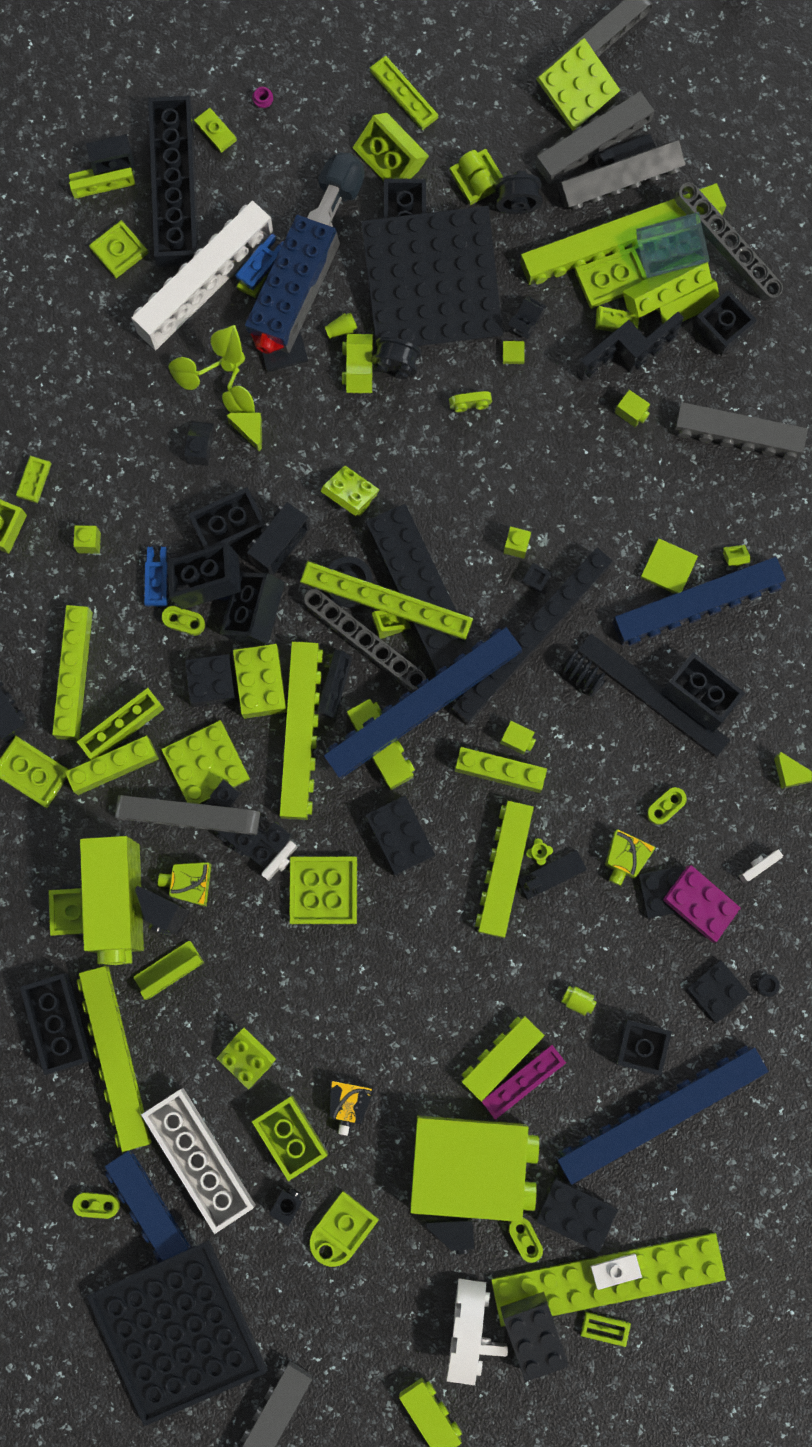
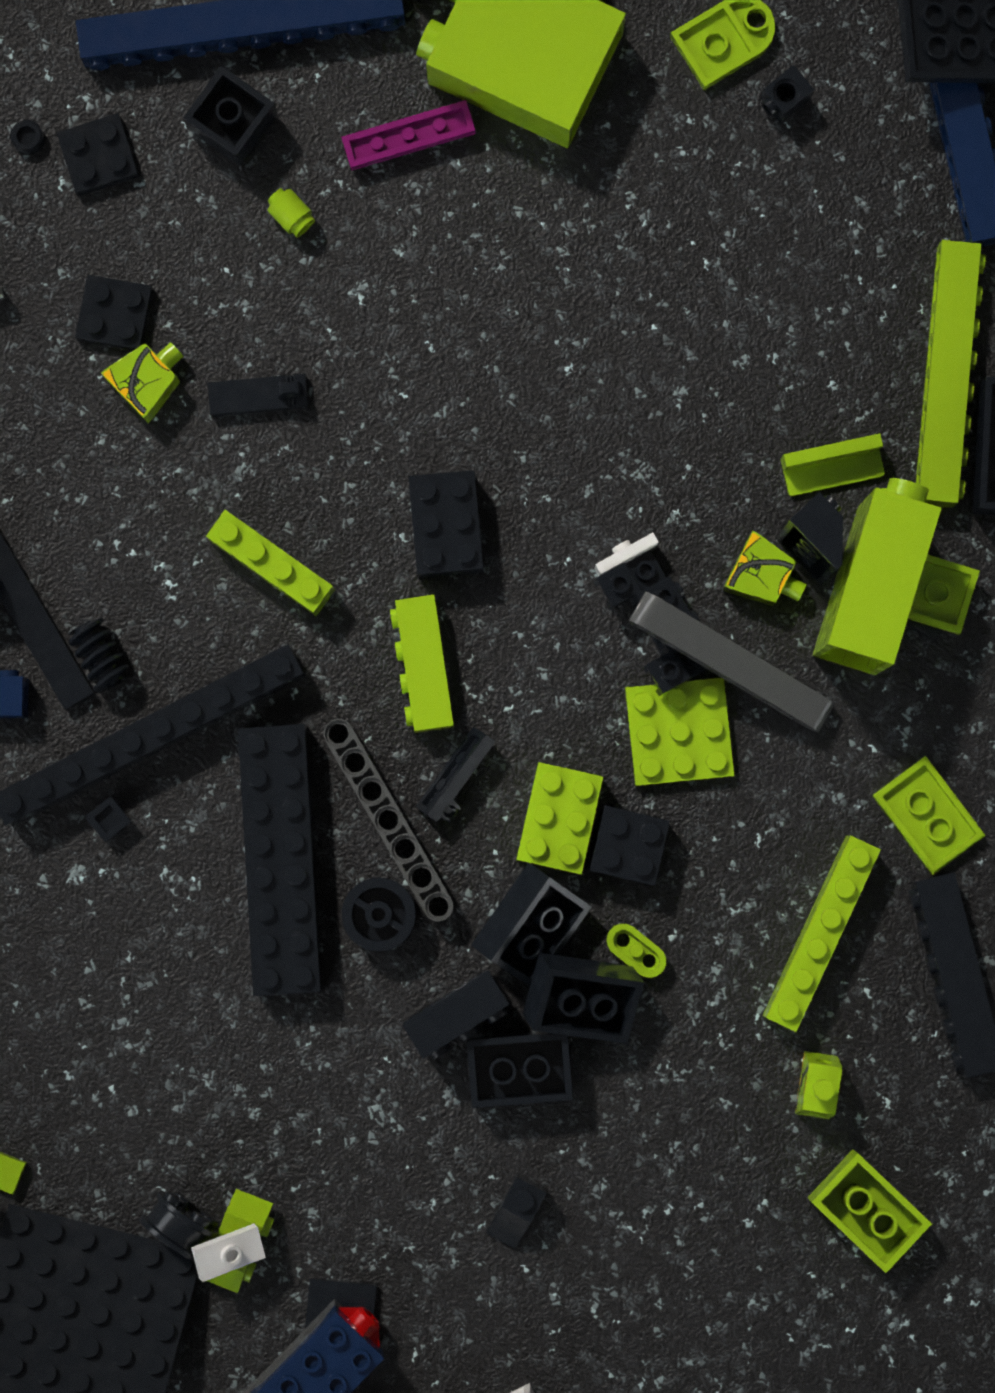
camera: 155 degrees left, 5 degrees up
(33, 479) = (778, 1247): lime plate -> none
(42, 579) = (819, 1085): none -> lime torso
(87, 539) = (732, 1123): lime brick -> none
(112, 765) = (811, 777): lime brick -> none
(121, 725) = (779, 829): lime brick -> none
(156, 579) = (653, 1027): blue hinge -> none
(198, 1160) = (882, 195): white brick -> none
(225, 344) = (422, 1322): lime plant -> none
(246, 1058) = (770, 305): lime plate -> none
(249, 426) = (435, 1205): lime slope -> none
(290, 1138) = (749, 178): lime brick -> none
(299, 731) = (529, 726): lime brick -> none
(323, 890) = (580, 492): lime plate -> none
(342, 325) = (239, 1311): lime cone -> none
(348, 1104) = (653, 194): torso -> none
(350, 491) = (325, 1049): lime plate -> none
(360, 350) = (228, 1252): none -> white plate
(386, 600) = (336, 860): lime tile -> none
(388, 624) = (341, 834): lime slope -> none
(423, 702) = (341, 690): dark blue brick -> none
(476, 400) = (111, 1122): lime plate -> none
(502, 1058) = (424, 176): lime brick -> none
(505, 869) = (319, 425): lime brick -> none
(517, 542) = (115, 880): lime brick -> none
(518, 738) = (228, 599): lime brick -> none
(533, 852) = (252, 430): lime plate -> none
(666, 807) = (62, 426): lime plate -> none
(701, 903) = (70, 275): magenta plate -> none

